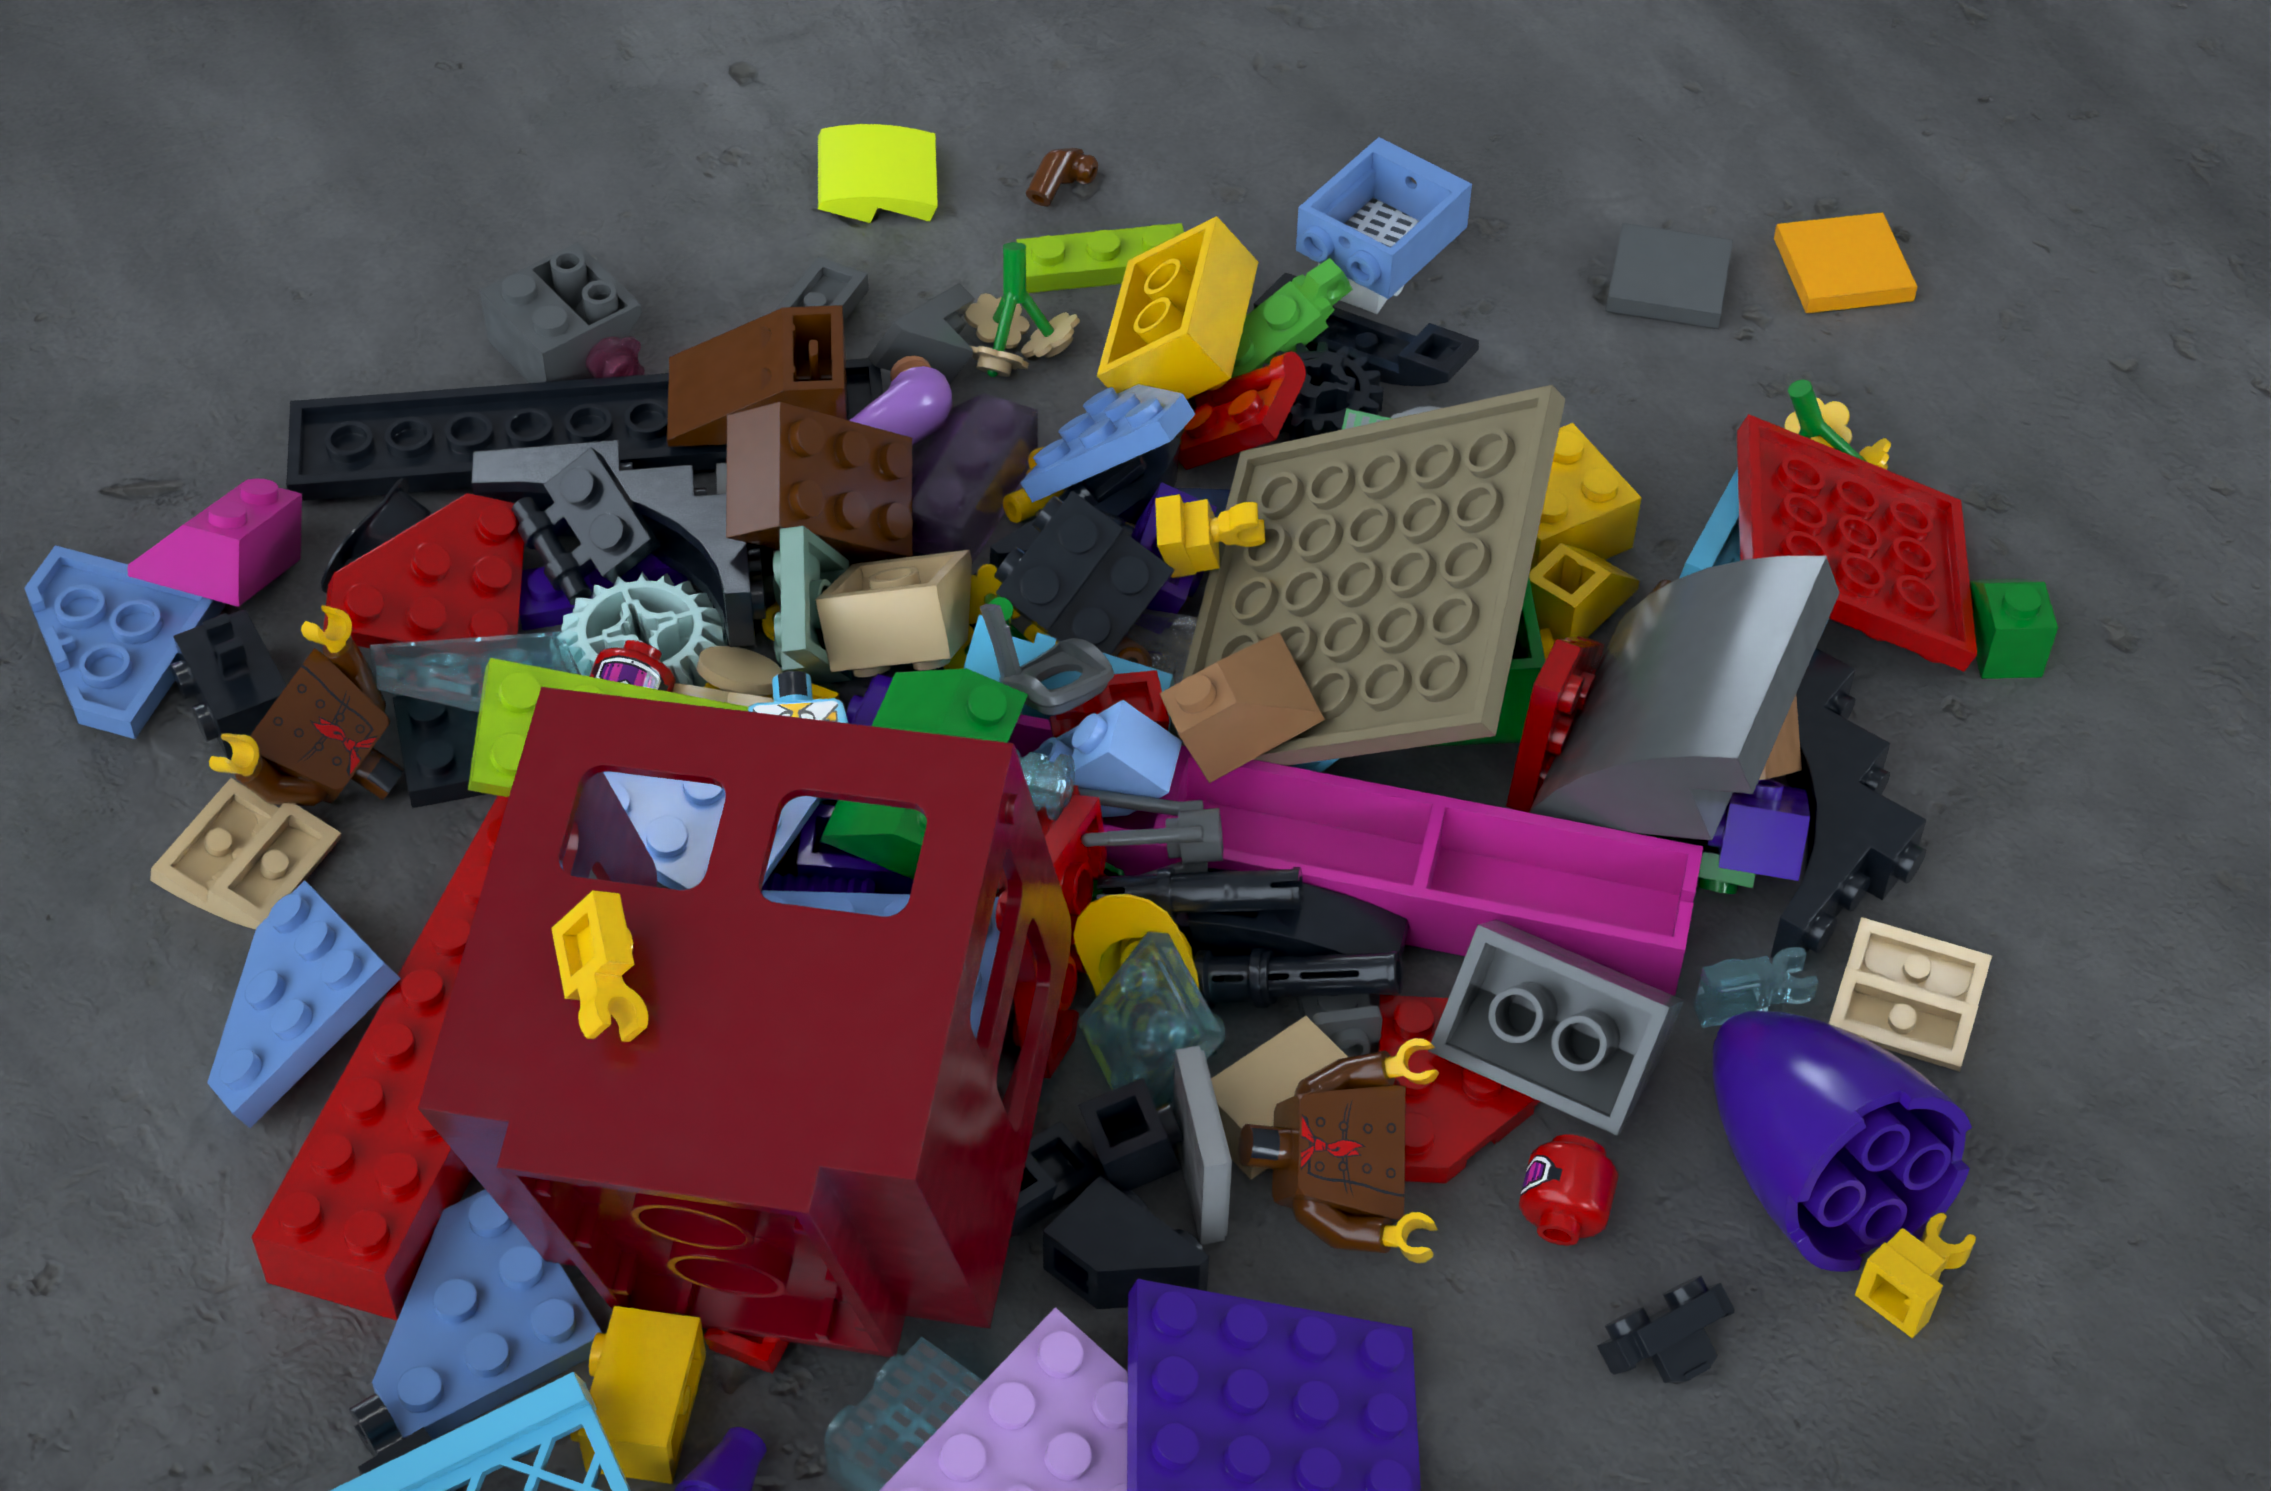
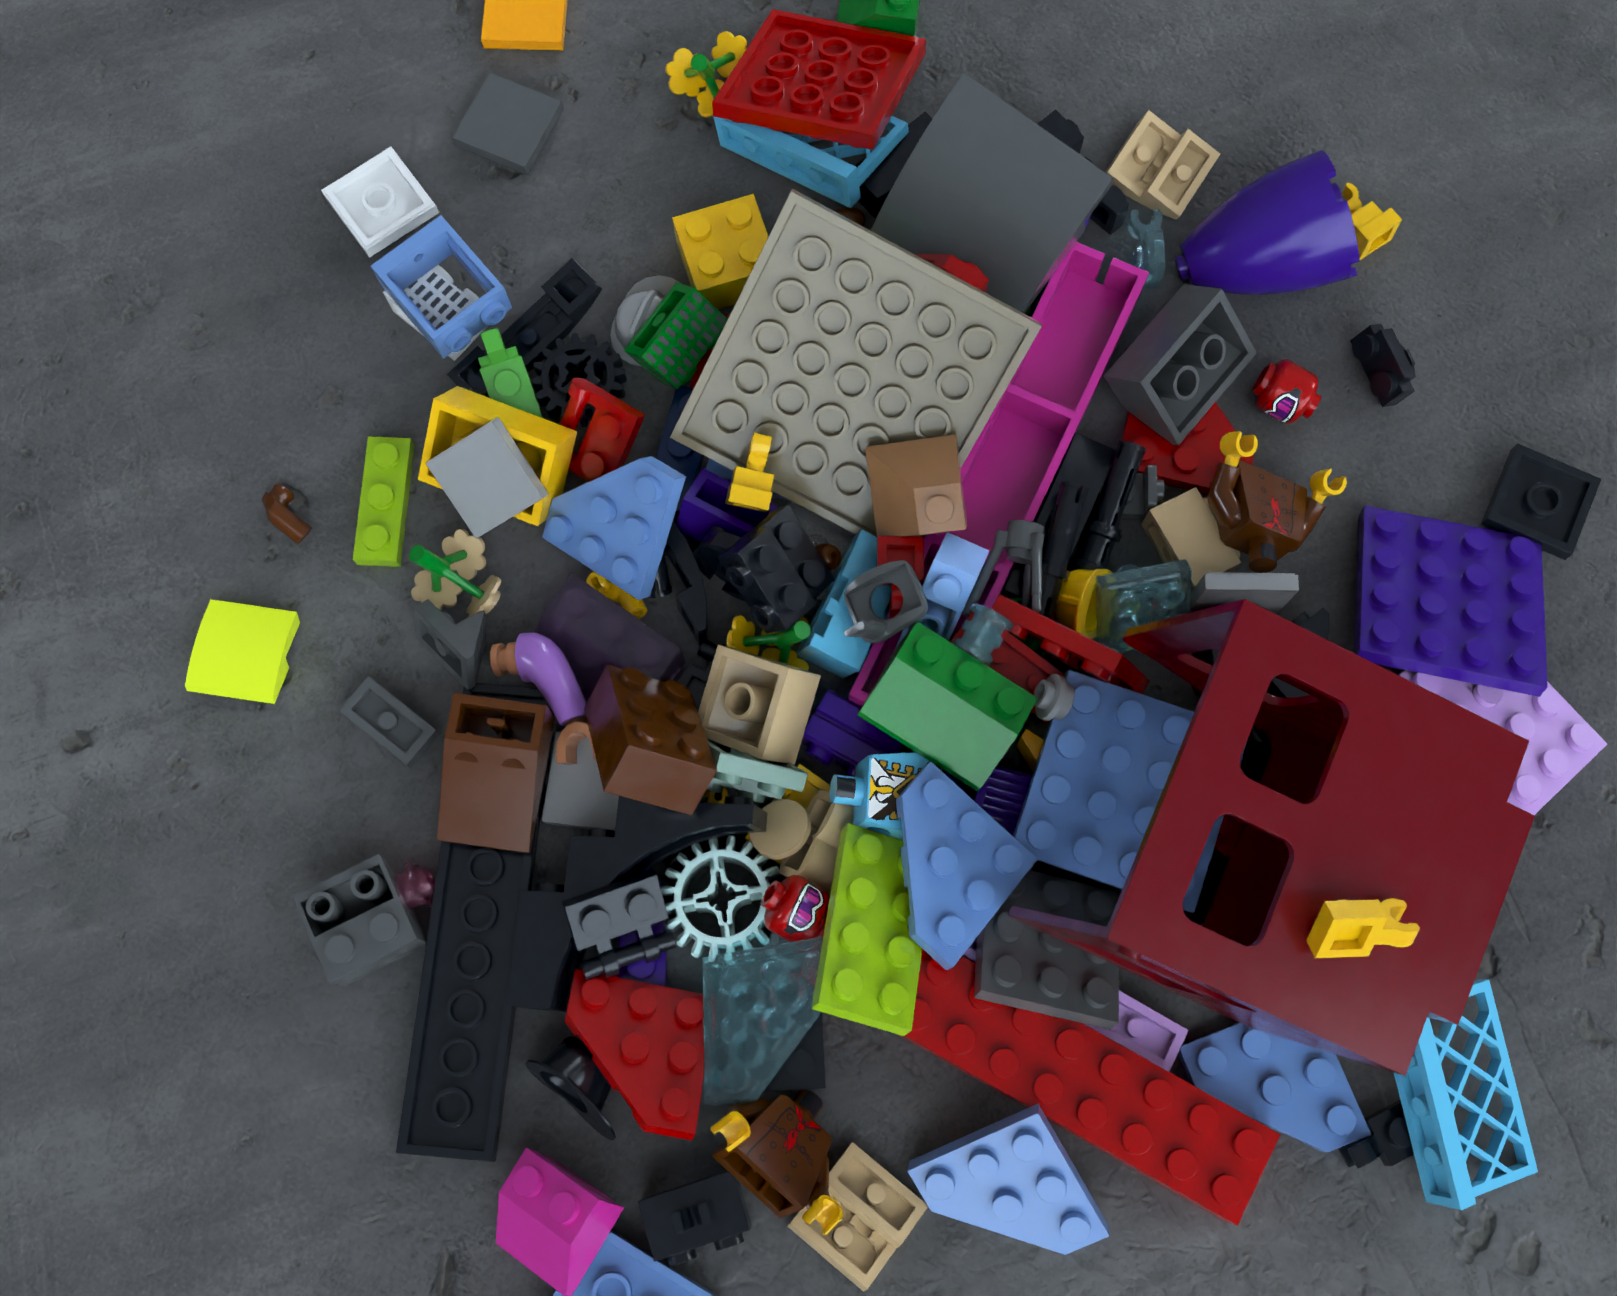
camera: 75 degrees left, 25 degrees up
(1137, 299) = (487, 478): none -> light grey tile
(1512, 175) = (380, 201): none -> white plate

